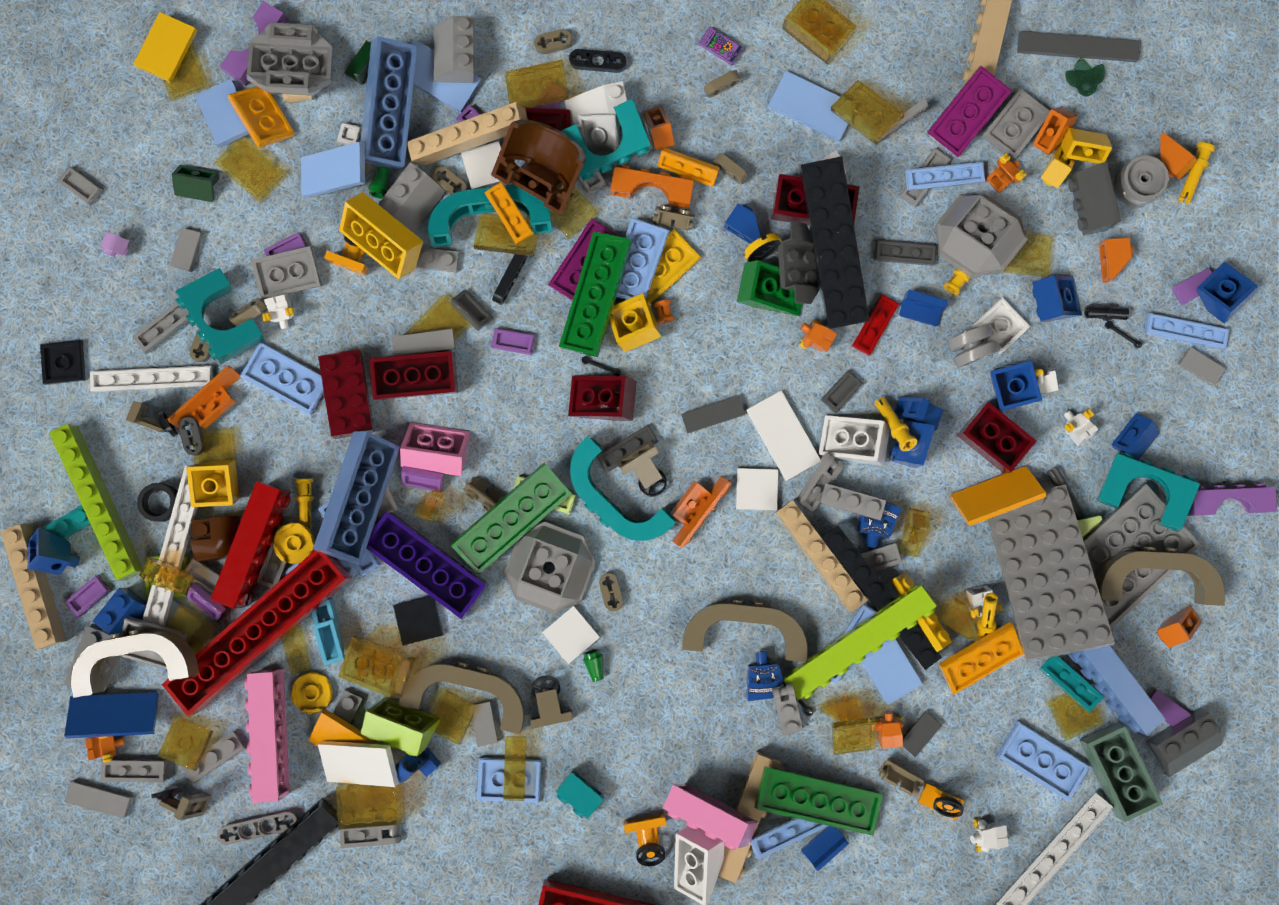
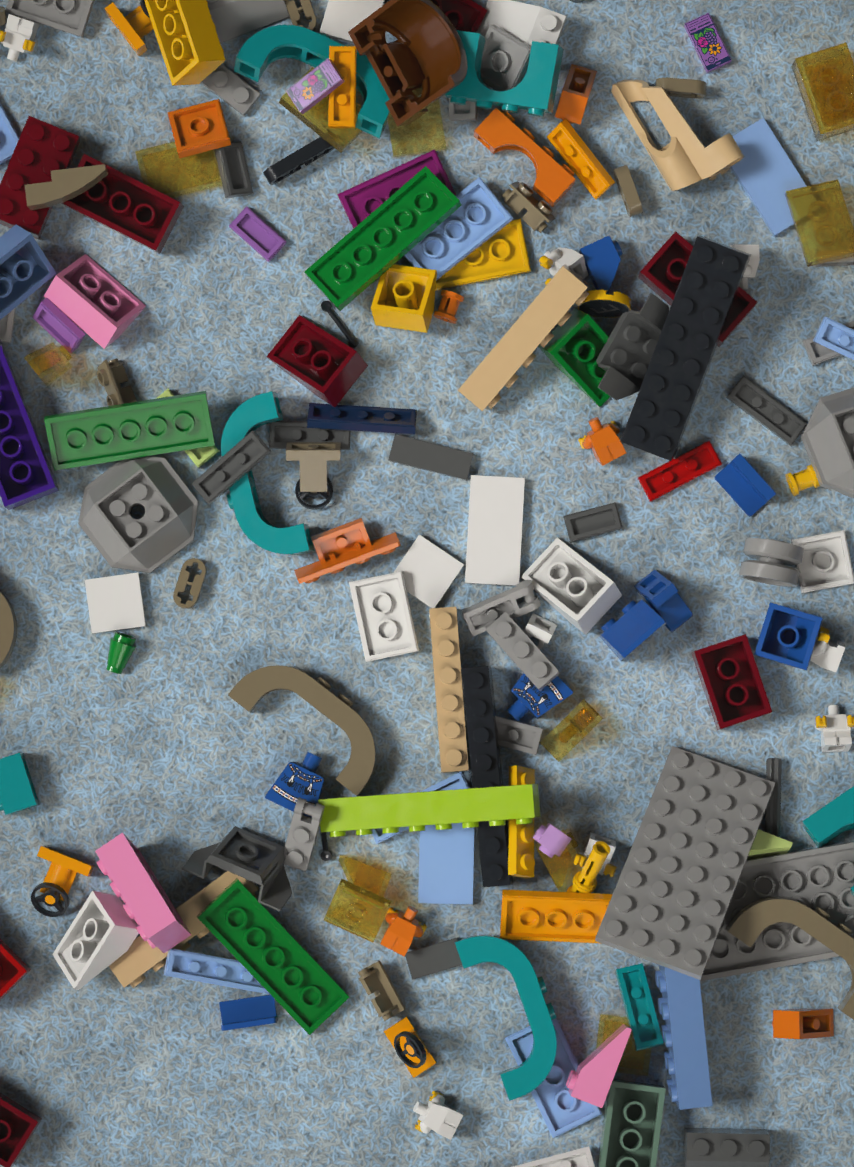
camera: 30 degrees right, 0 degrees up
(369, 387) = (64, 186): none -> dark tan slope
(424, 342) = (156, 173): light grey tile -> none
(433, 297) = (199, 128): none -> orange tile
(491, 222) = (315, 86): none -> tile
(548, 703) = (42, 662): dark tan piece -> none
(592, 501) = (231, 467): none -> dark grey tile
(654, 417) = (362, 418): none -> dark blue tile
(722, 240) = (558, 257): none -> white piece
(726, 301) = (524, 336): none -> tan brick
(748, 534) = (384, 616): none -> white tile
(753, 125) = (685, 157): none -> tan panel
(763, 747) = (249, 858): none -> dark grey piece
(853, 480) = (540, 629): none -> white tile
(898, 430) = (625, 603): yellow pin -> none
(950, 611) = (551, 840): none -> lavender plate
(997, 496) = (691, 747): light orange tile -> none
(1032, 762) = (533, 1071): none -> teal arch
(1075, 739) = (597, 1071): none -> bright pink slope
(1170, 710) = (729, 1106): medium lavender tile -> none

